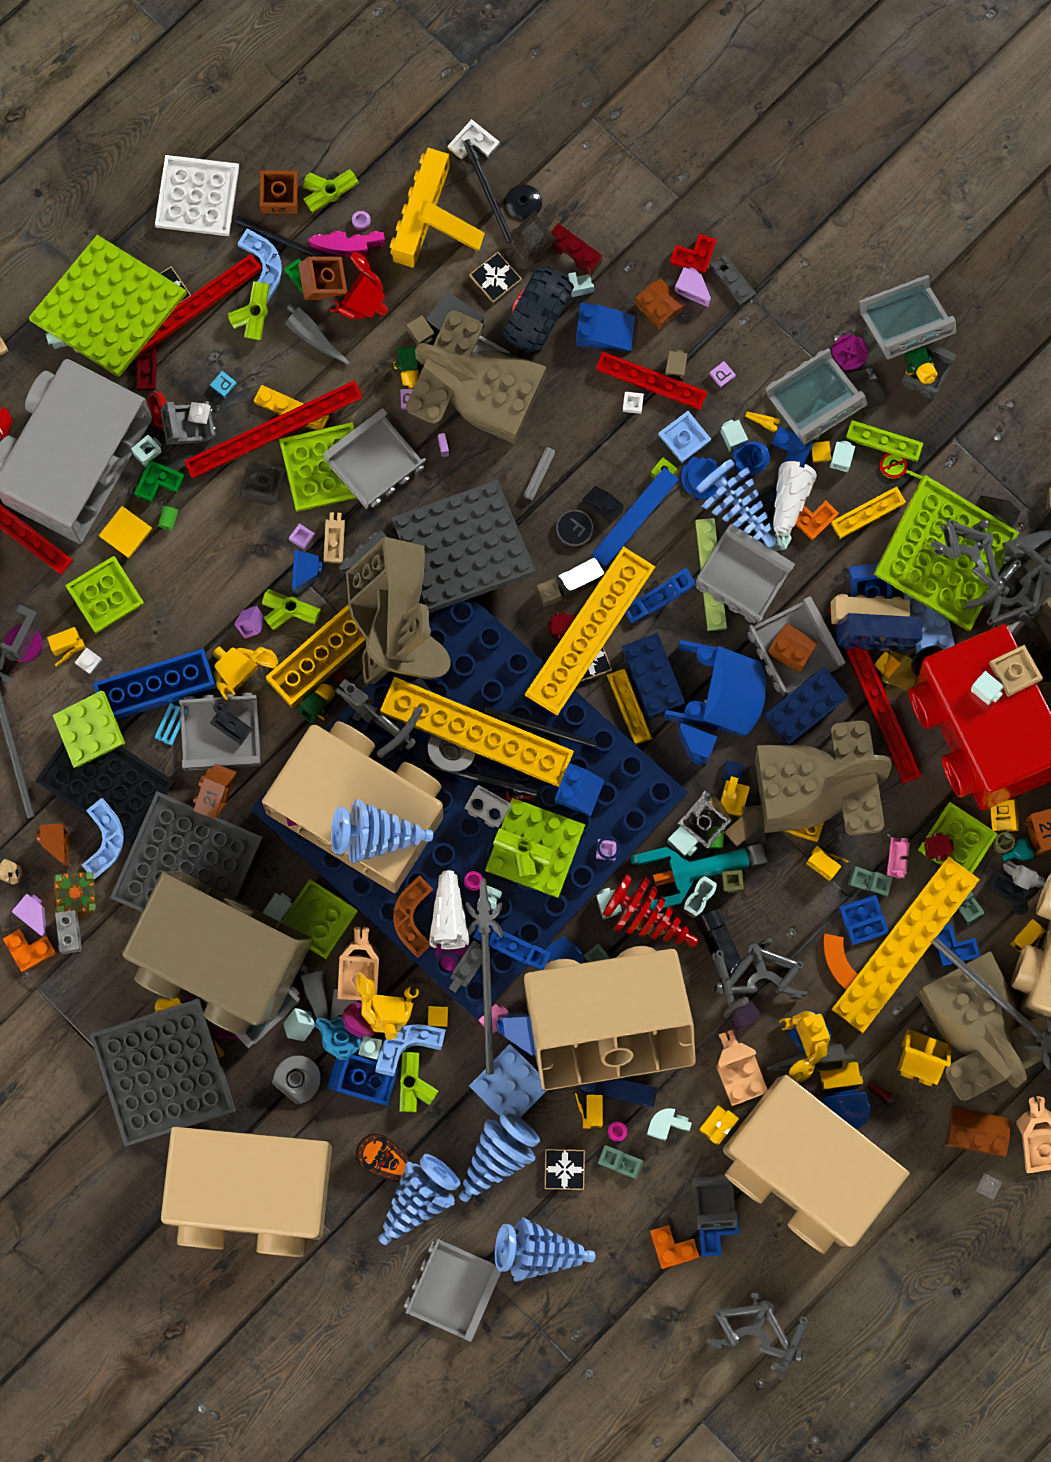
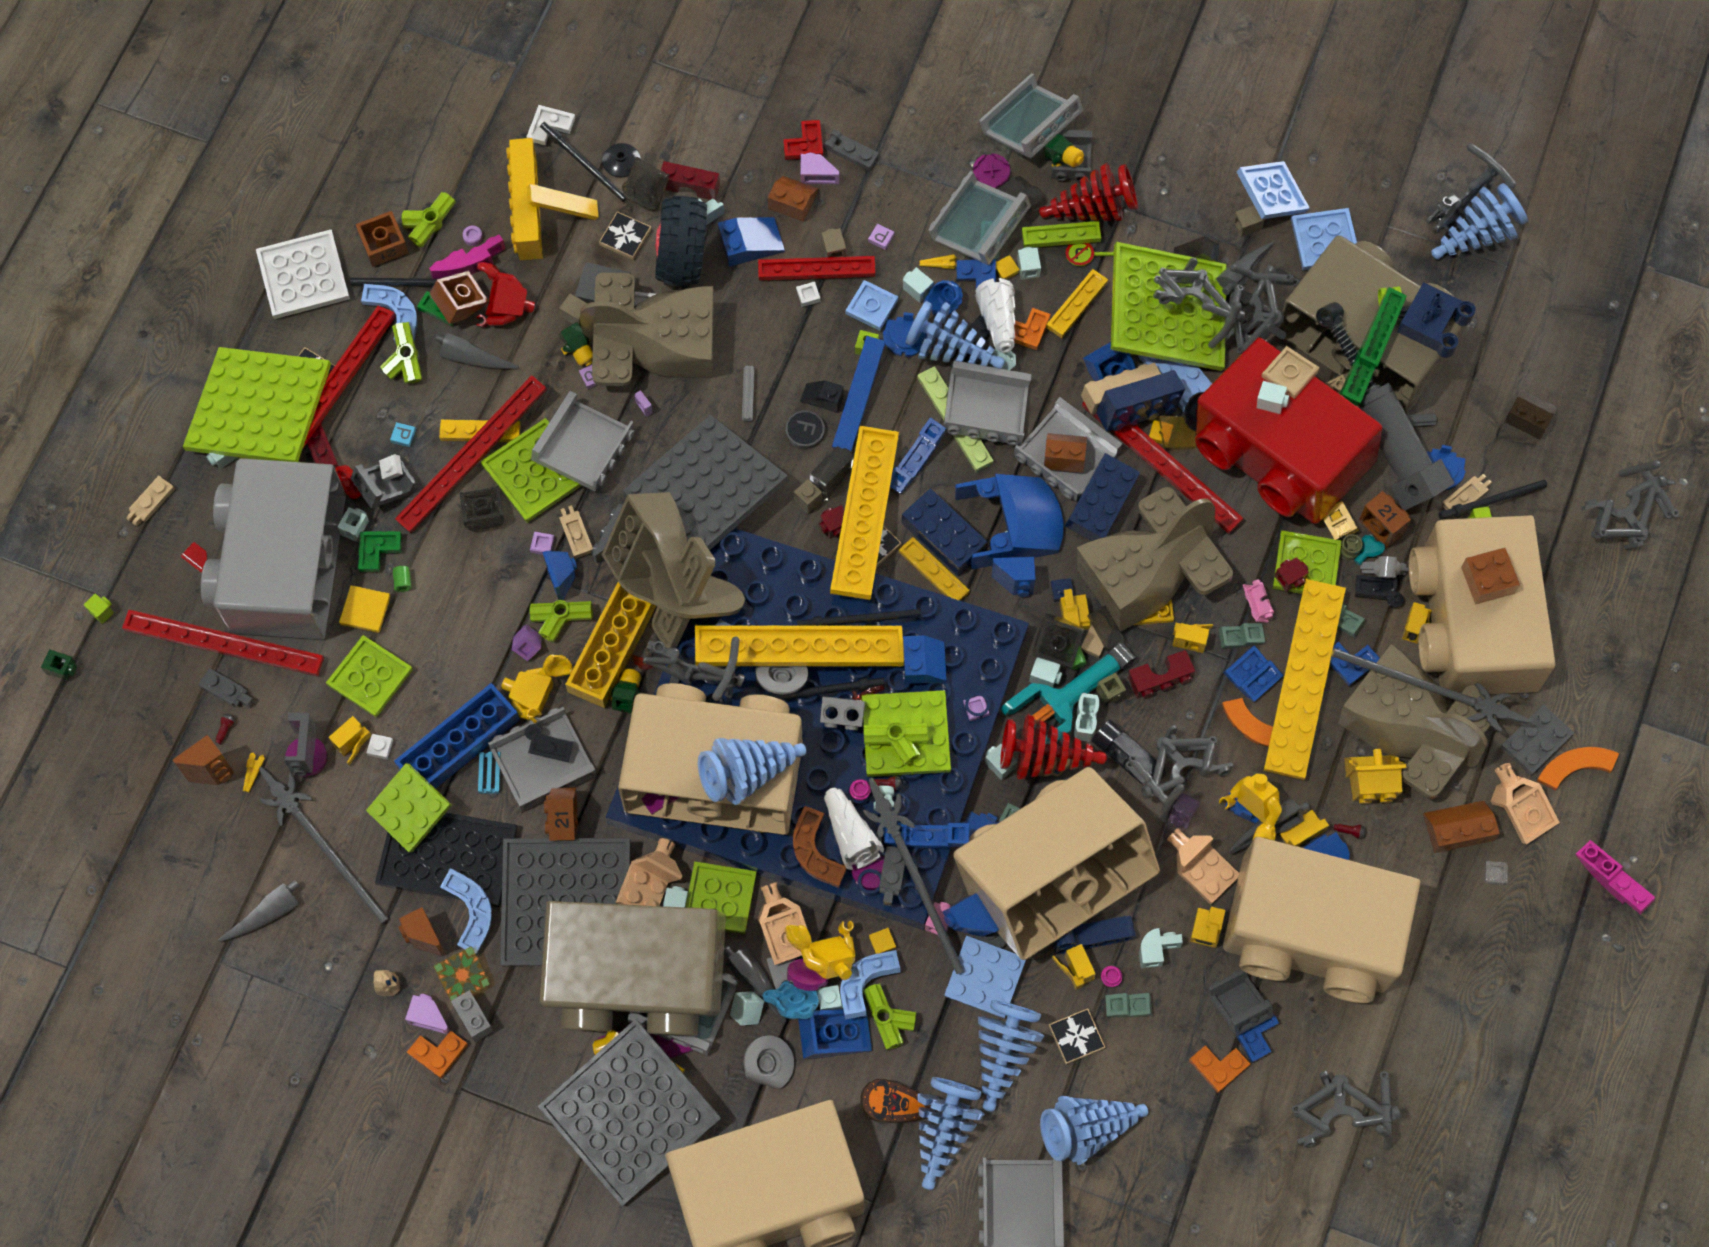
camera: 20 degrees left, 10 degrees down
(263, 878) = (649, 877): none -> light nougat plate
(505, 887) = (893, 781): none -> dark red piece
(765, 888) = (1146, 682): none -> dark red arch
(931, 420) = (1102, 195): none -> red plant

